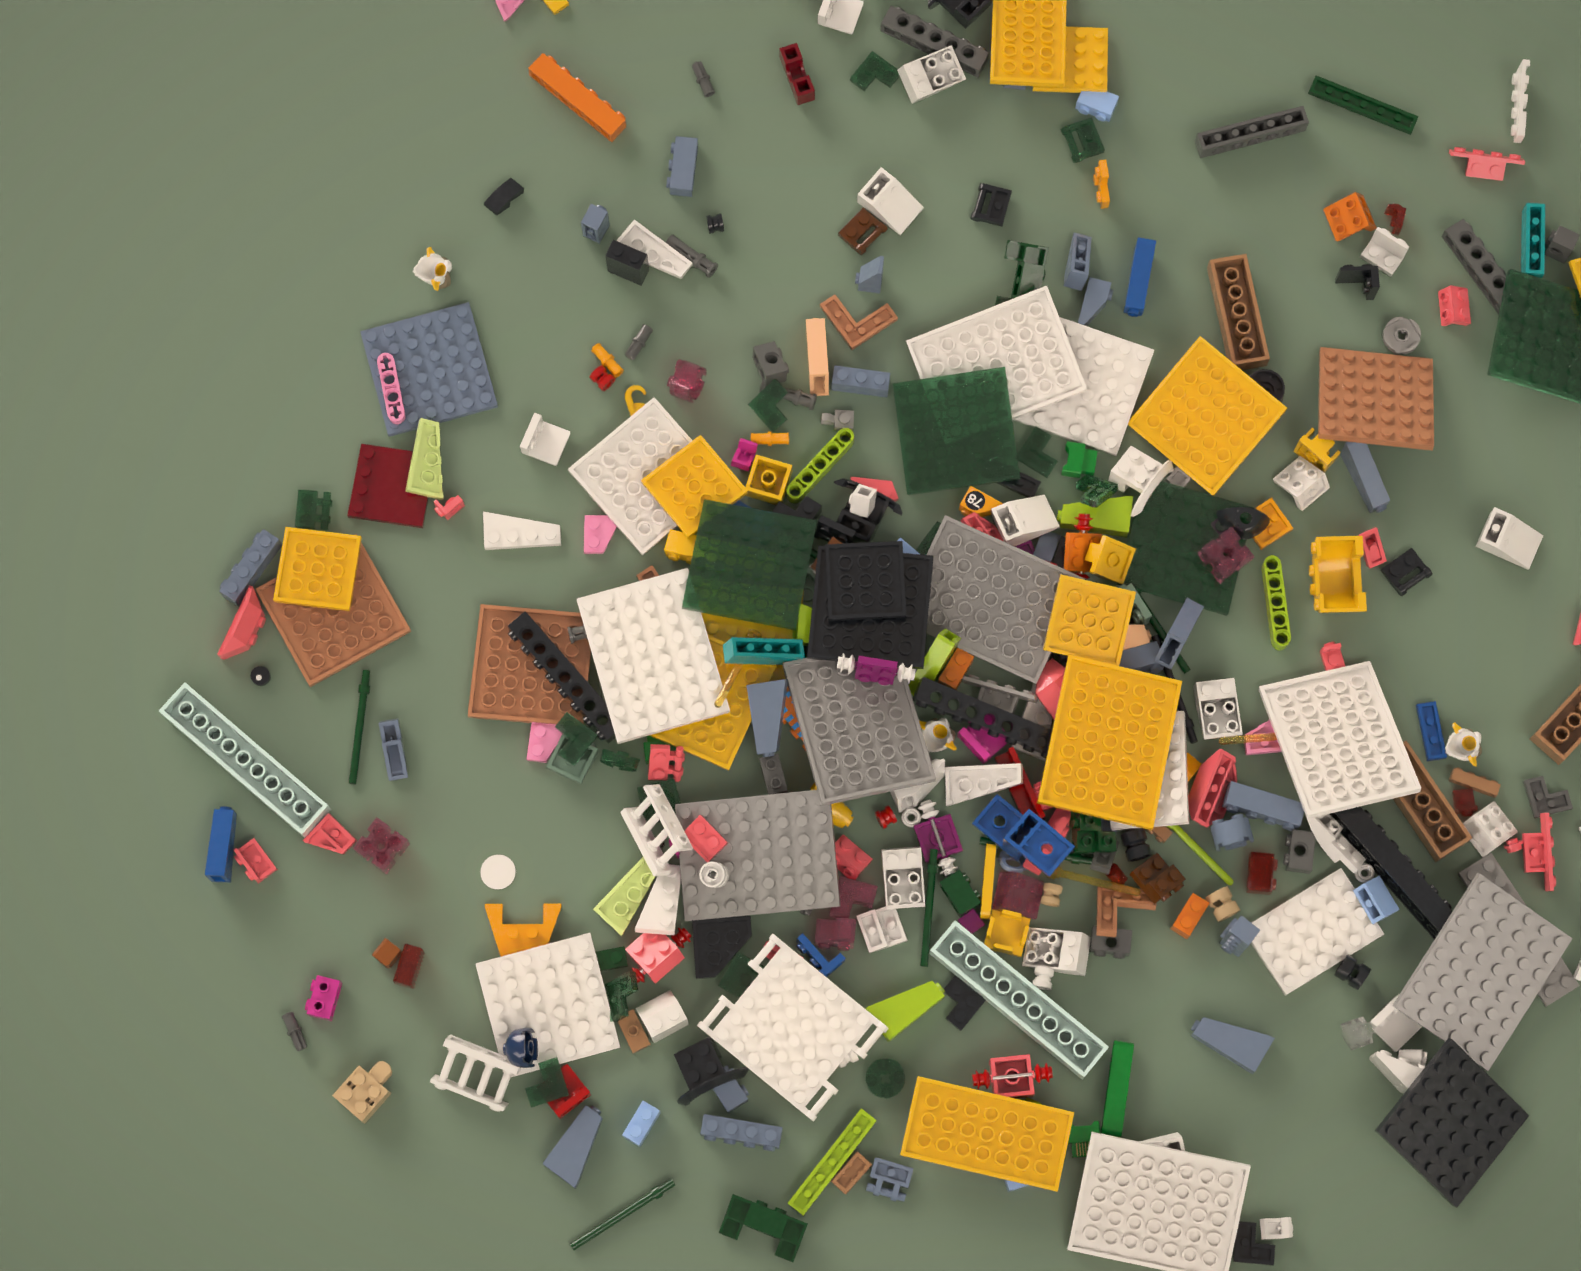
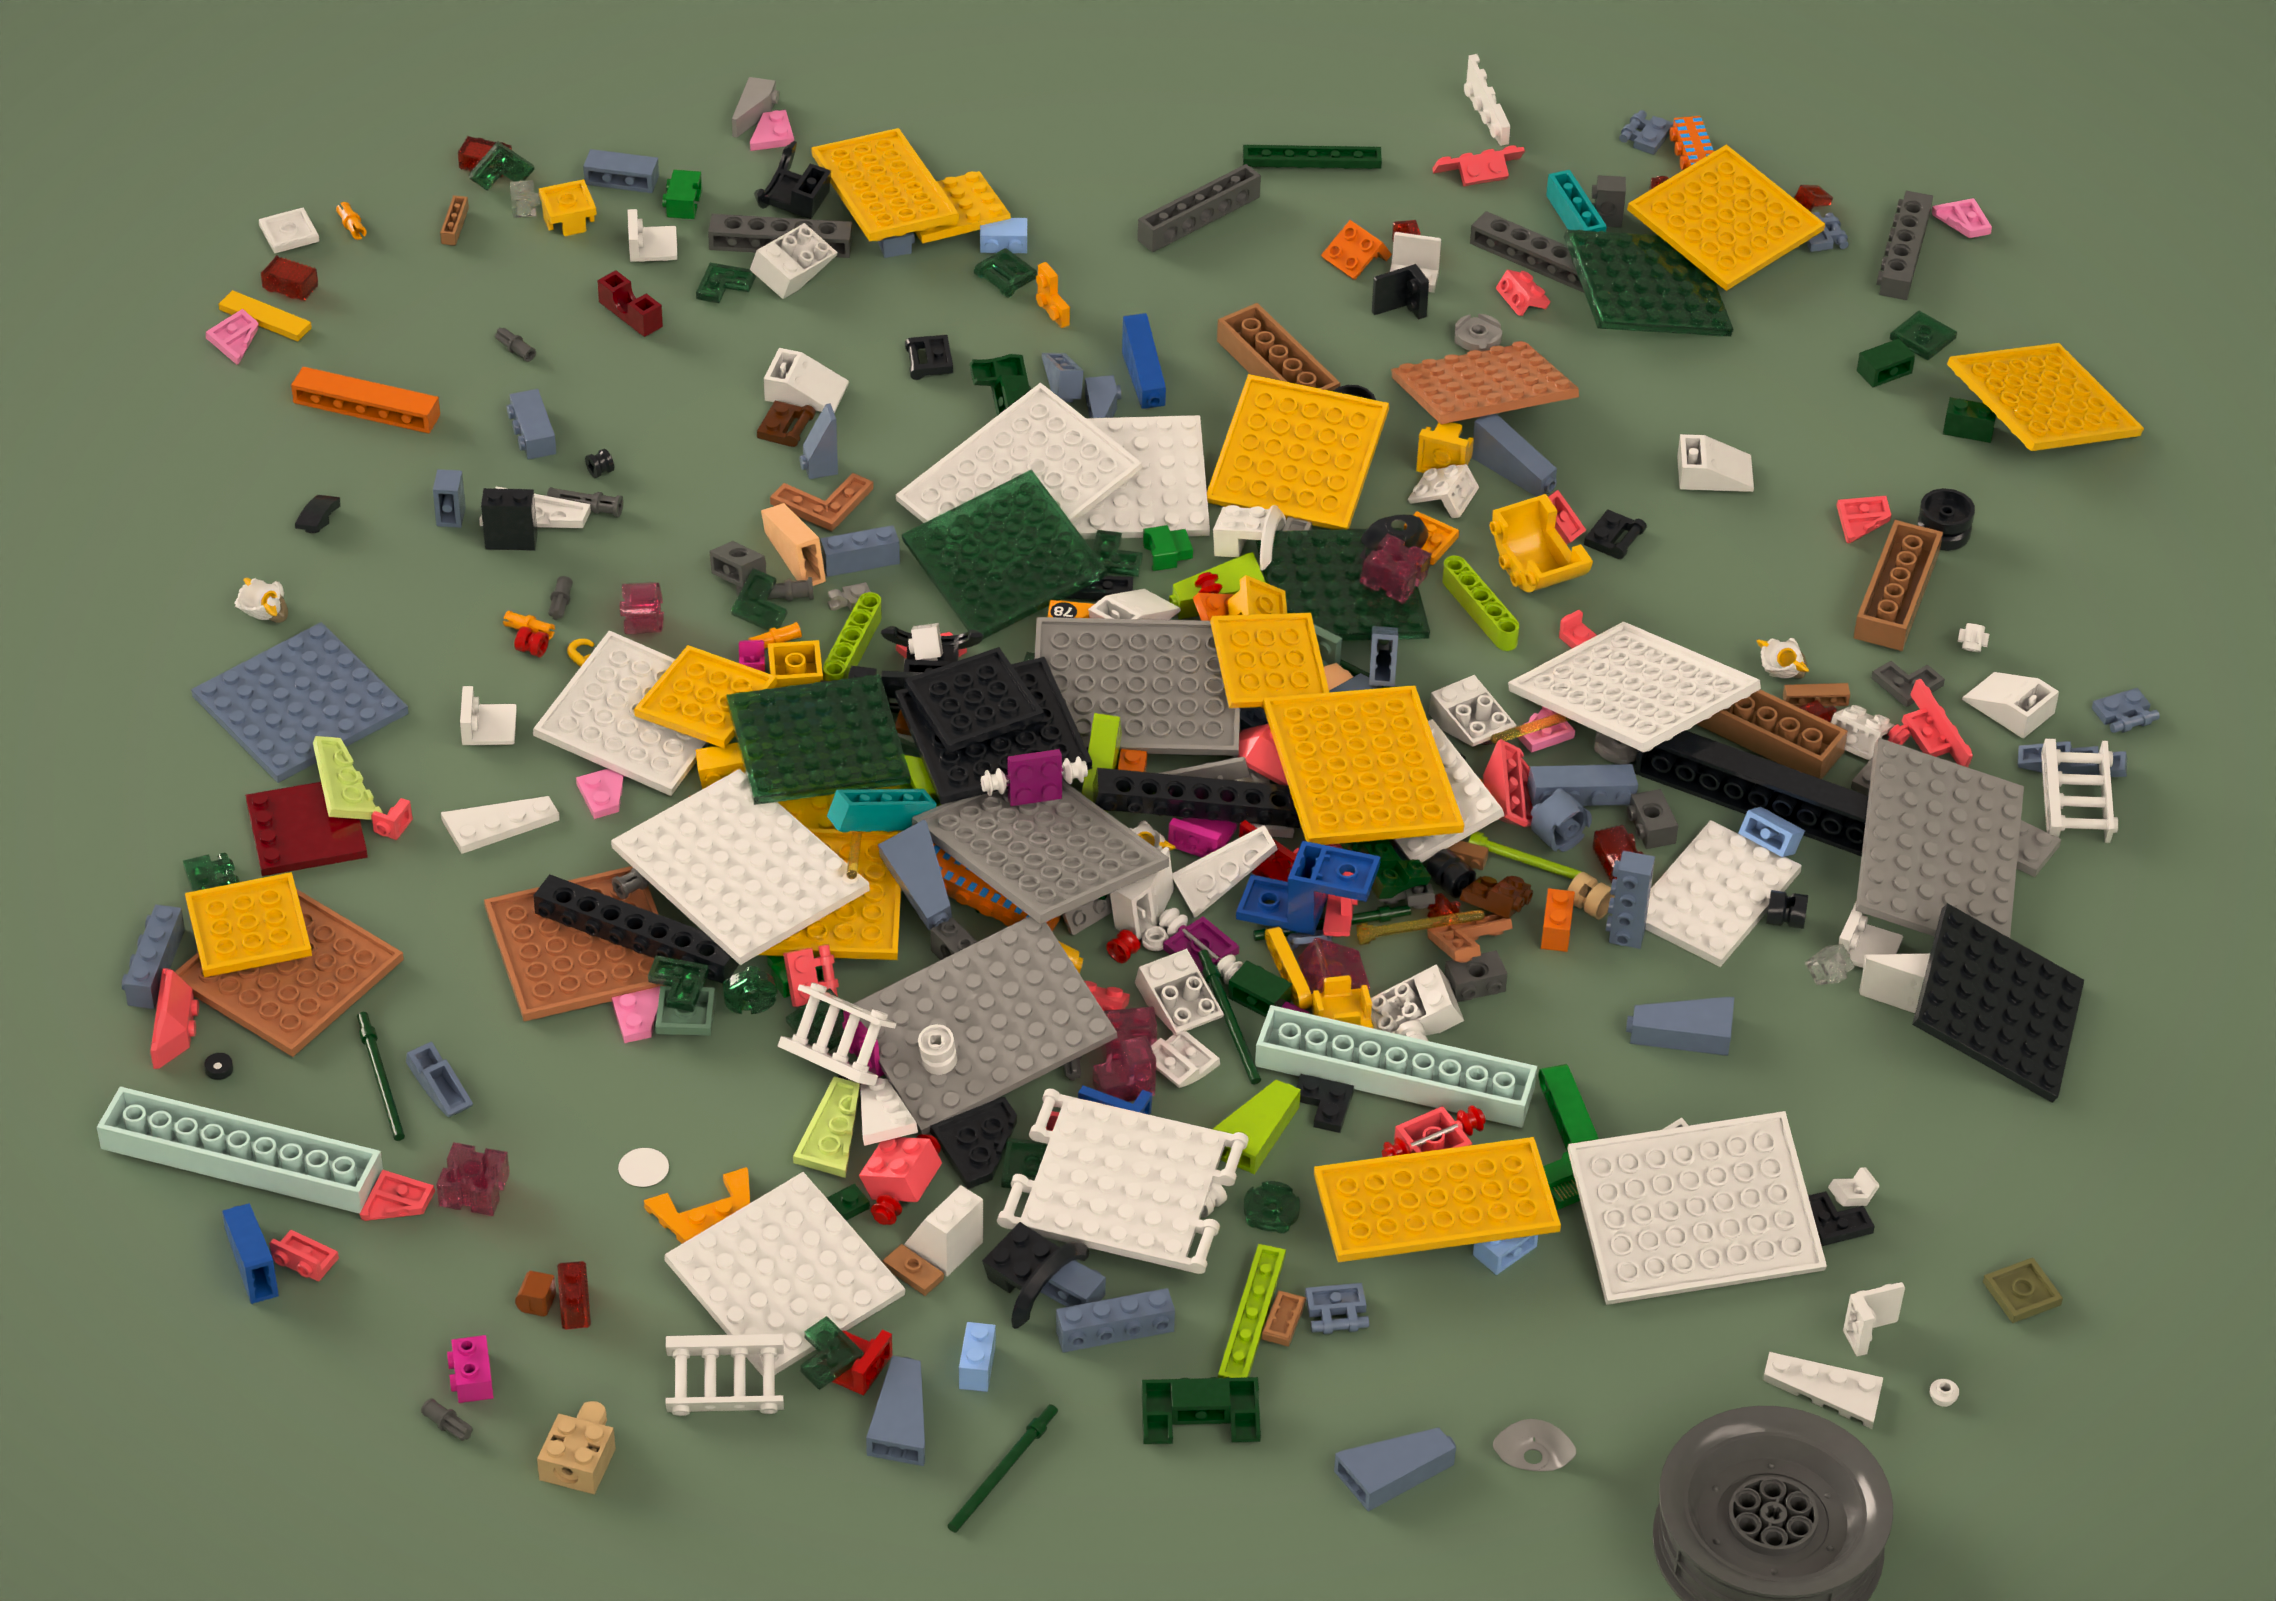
camera: 25 degrees left, 30 degrees down
(391, 388) = (256, 726): bright pink beam -> none
(521, 1048) = (772, 1314): dark blue cylinder -> none
(617, 991) = (873, 1221): clear green plate -> none
(705, 838) = (909, 1021): coral plate -> none
(1051, 894) = (1375, 955): tan wheel -> none
(1095, 490) = (1205, 560): clear green plate -> none
(1337, 847) = (1673, 783): white slope -> none
(1370, 871) = (1737, 815): white plate -> none
(1431, 731) = (1725, 653): blue tile -> none

